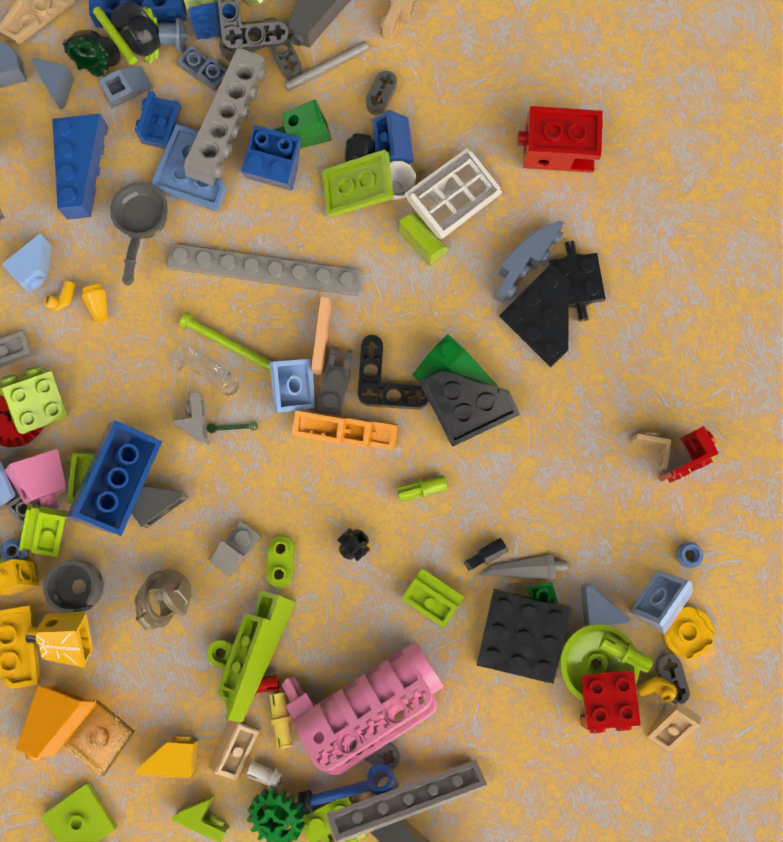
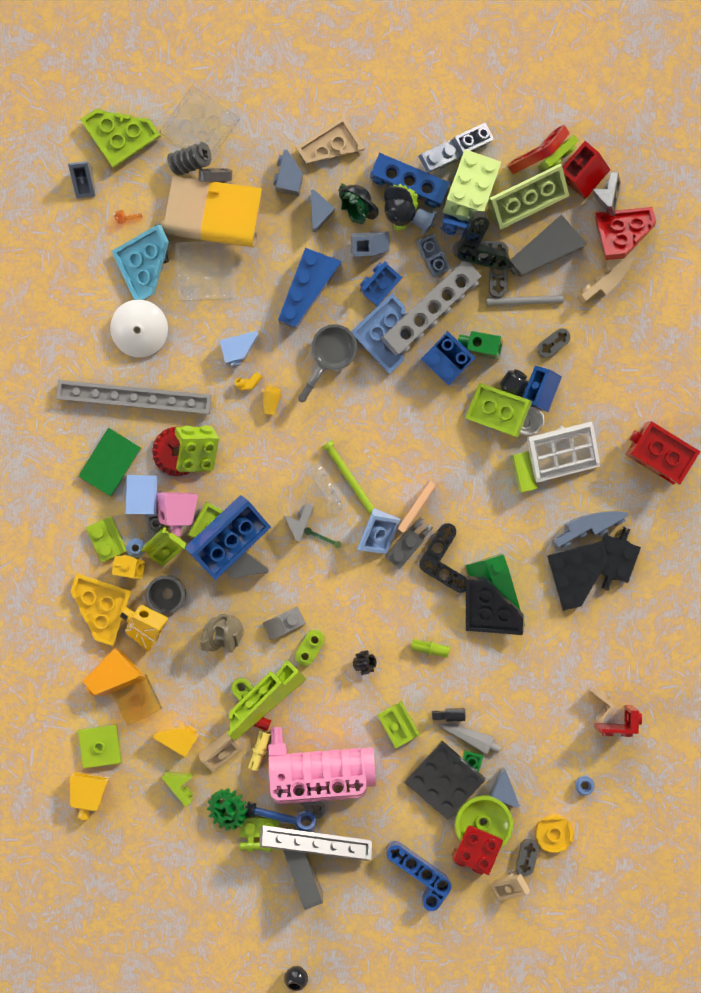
camera: 30 degrees right, 10 degrees up
(115, 36) = (381, 204): lime bar -> none
(264, 269) = (400, 435): light grey plate -> none
(264, 775) = (230, 777): white pin -> none
(345, 429) = (398, 581): light orange slope -> none
(549, 769) = (416, 870): none -> blue beam
(626, 653) = (504, 826): lime axle -> none
(659, 686) = (515, 856): yellow arm -> none
(662, 600) = (548, 805): light blue slope -> none

